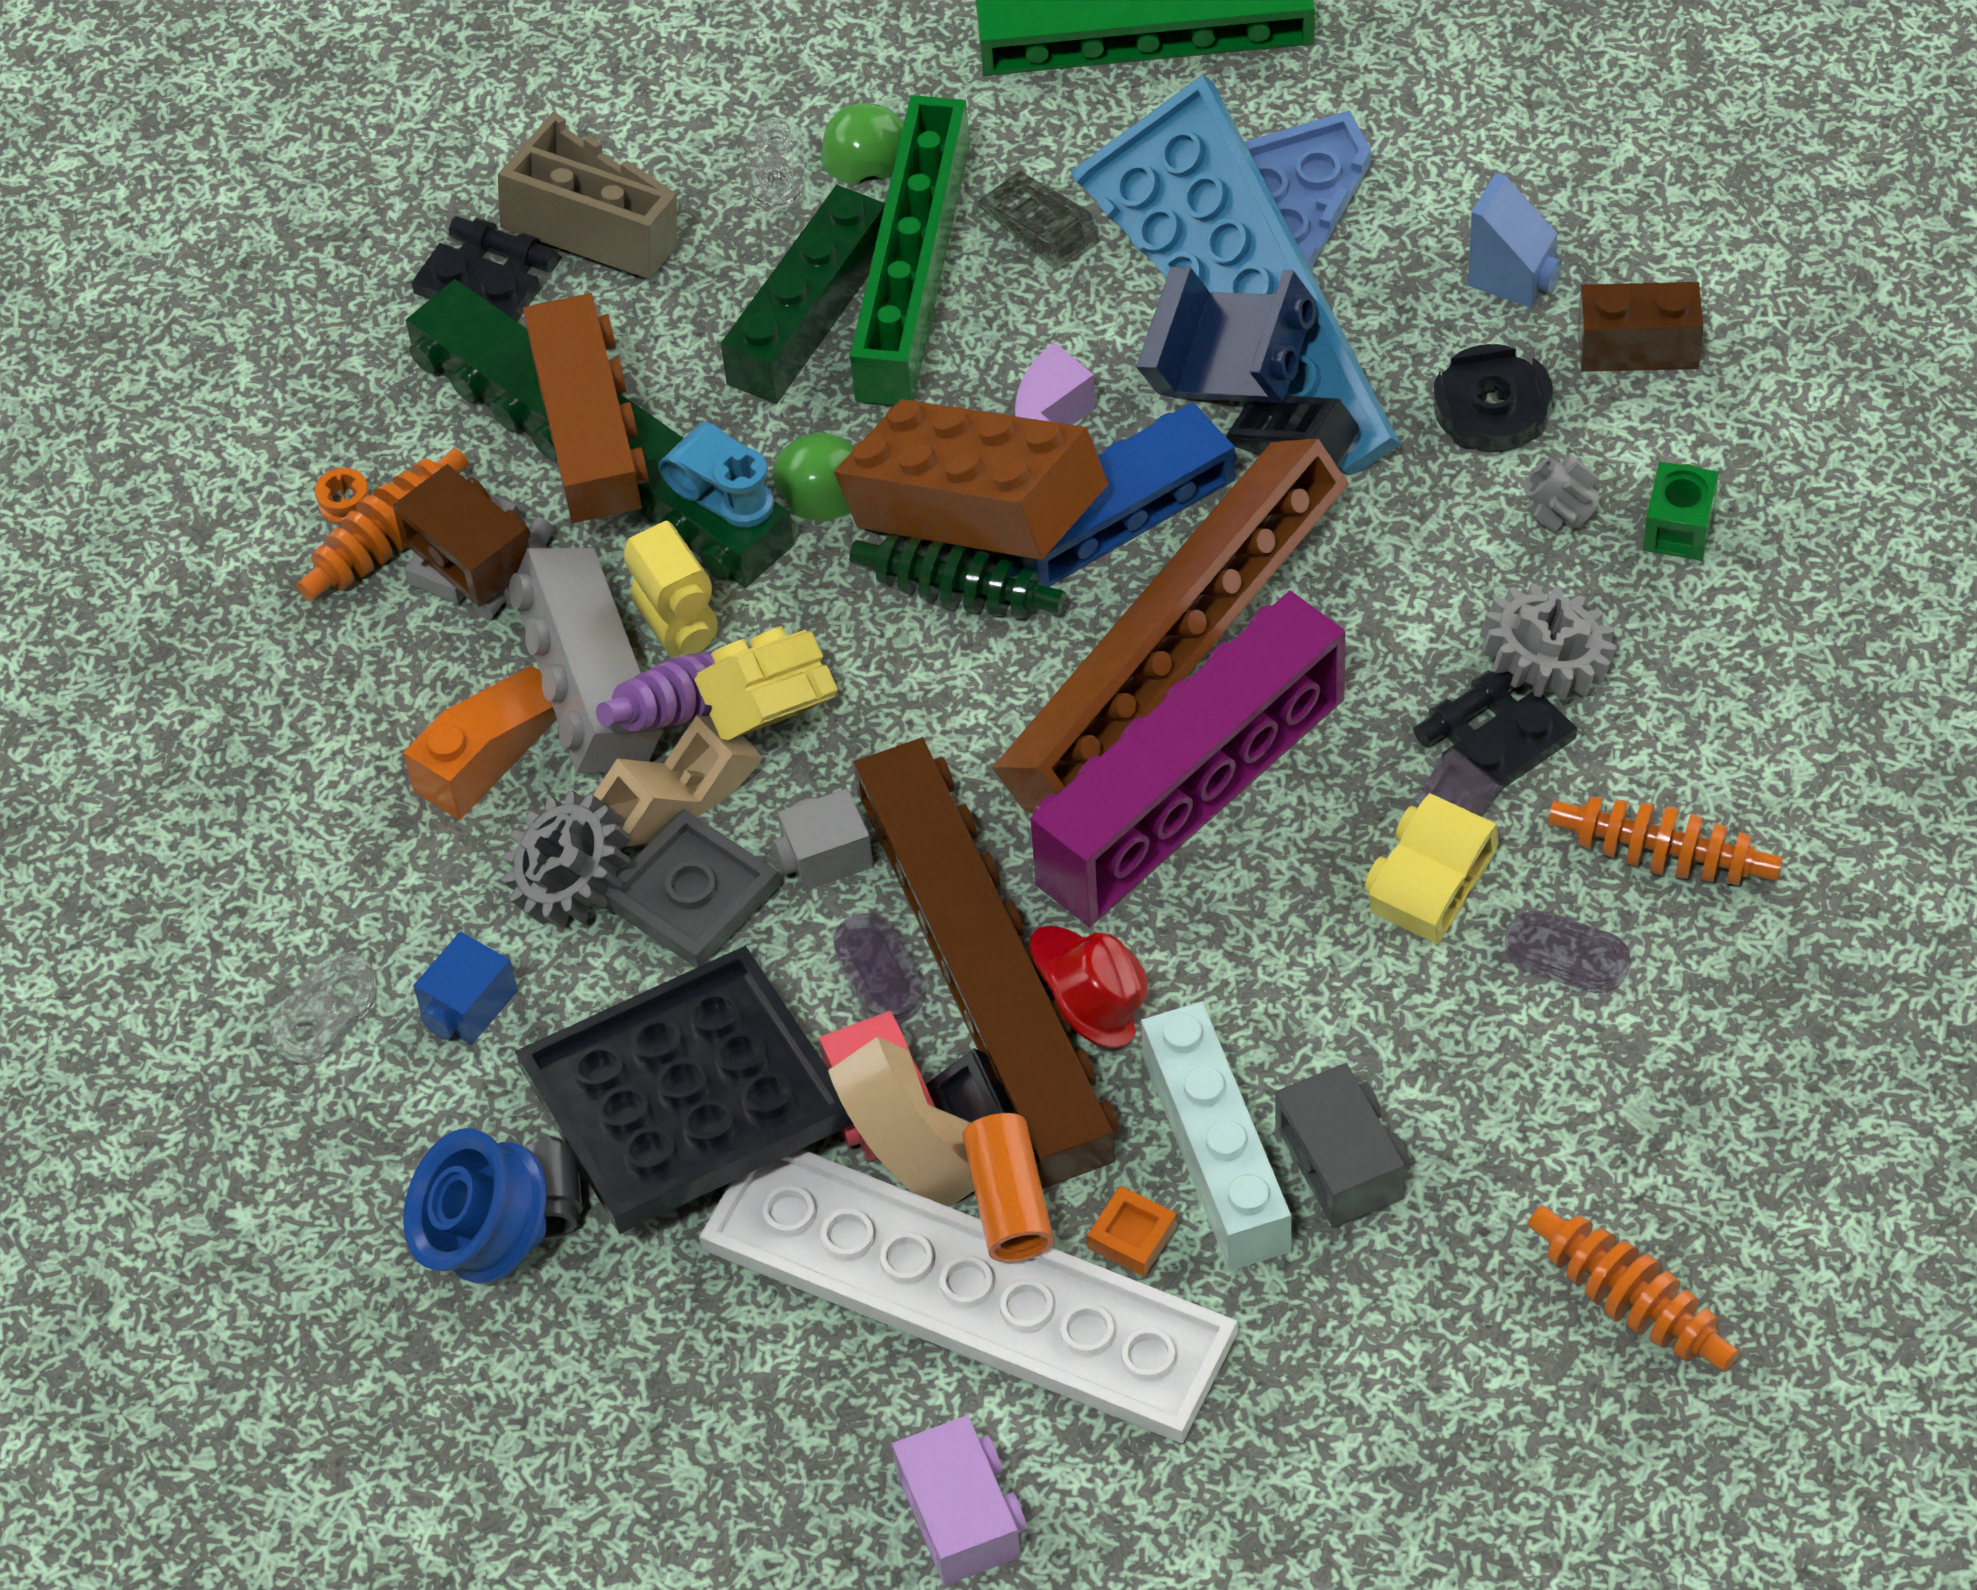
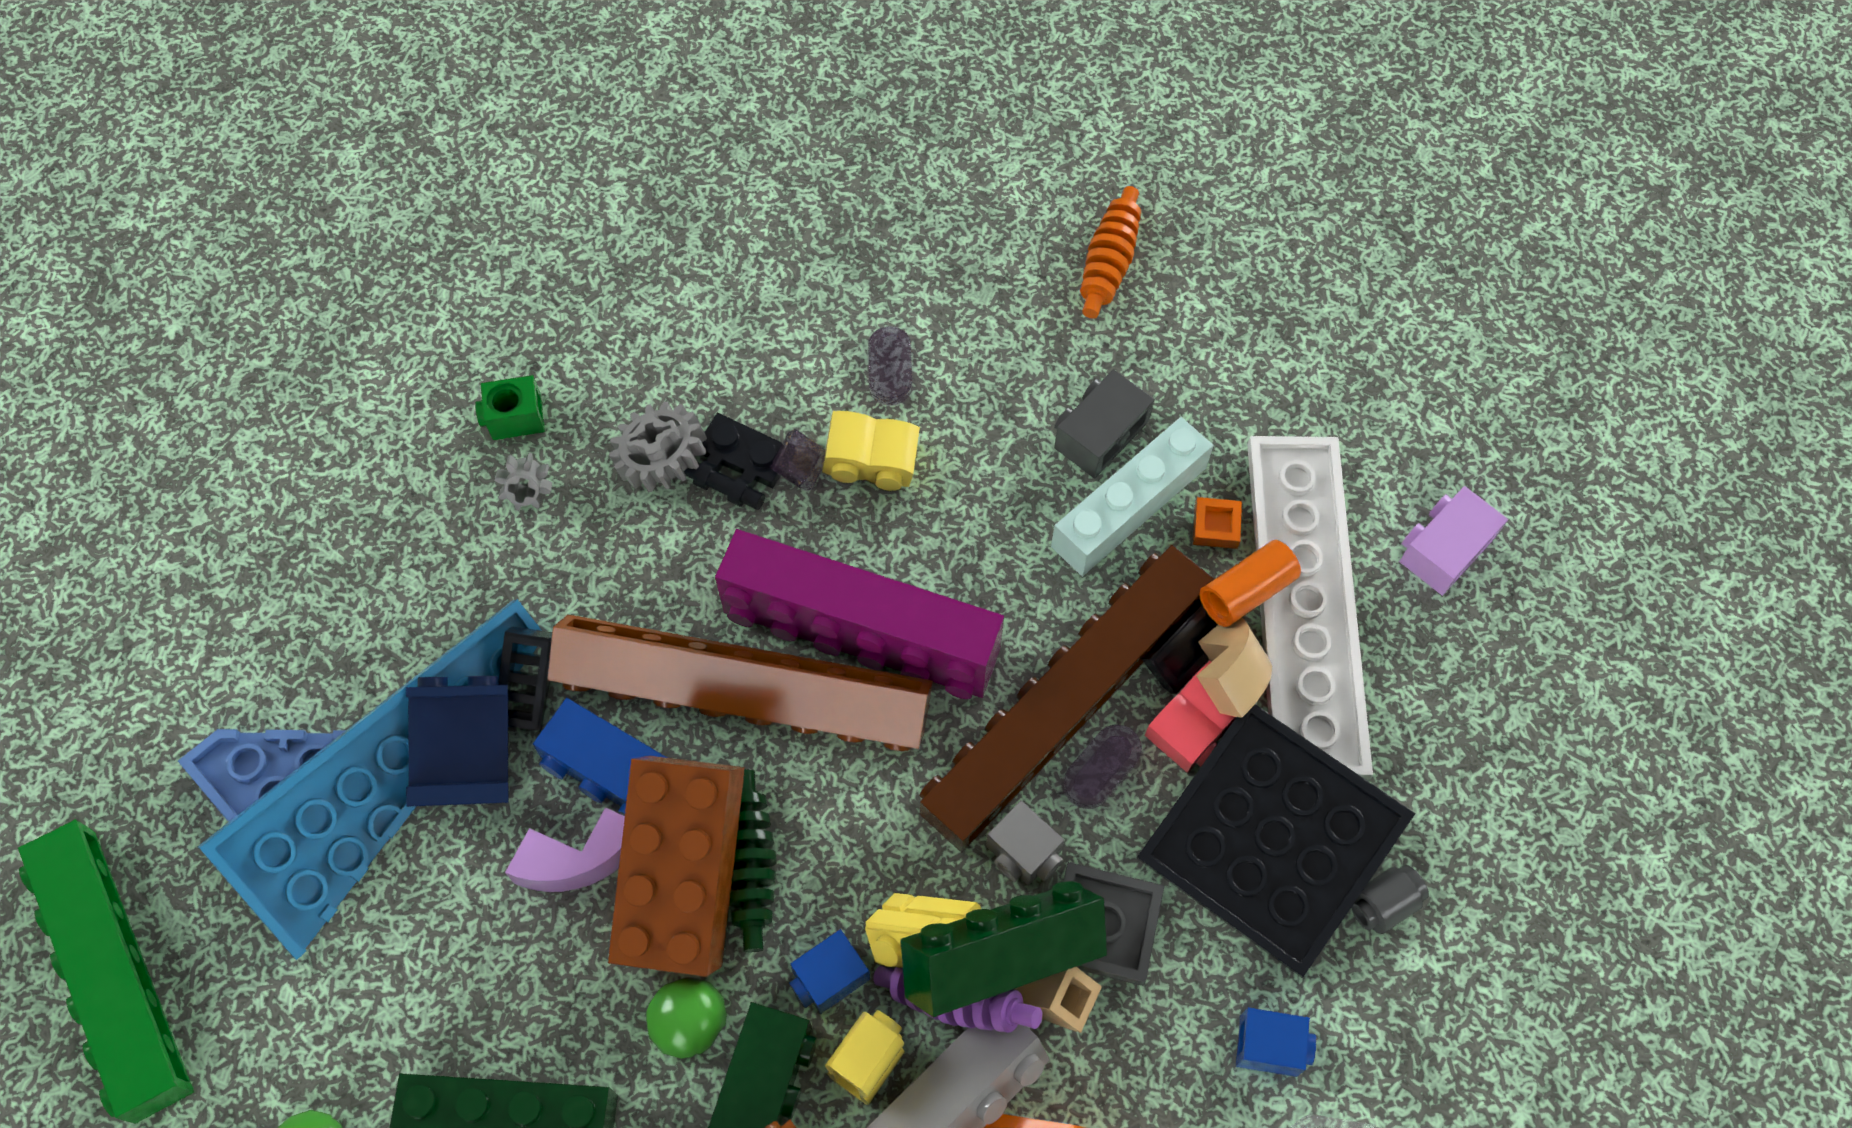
camera: 120 degrees left, 10 degrees up
(475, 1206) = (1450, 924): blue wheel -> none
(566, 859) = (1138, 1043): dark grey gear -> none
(693, 711) = (1003, 947): none -> dark green brick
(719, 476) = (747, 1073): dark azure piece -> none
(788, 598) = (828, 973): none -> blue brick
(910, 251) = (428, 1040): green brick -> none
(1059, 244) = (368, 974): clear smoke slope -> none
(1093, 982) = (1056, 614): red piece -> none
(1486, 425) = (447, 585): black plate -> none
(1511, 246) = (301, 588): medium blue slope -> none
(1640, 326) = (351, 483): reddish brown brick -> none
(1665, 840) = (788, 334): orange piece -> none

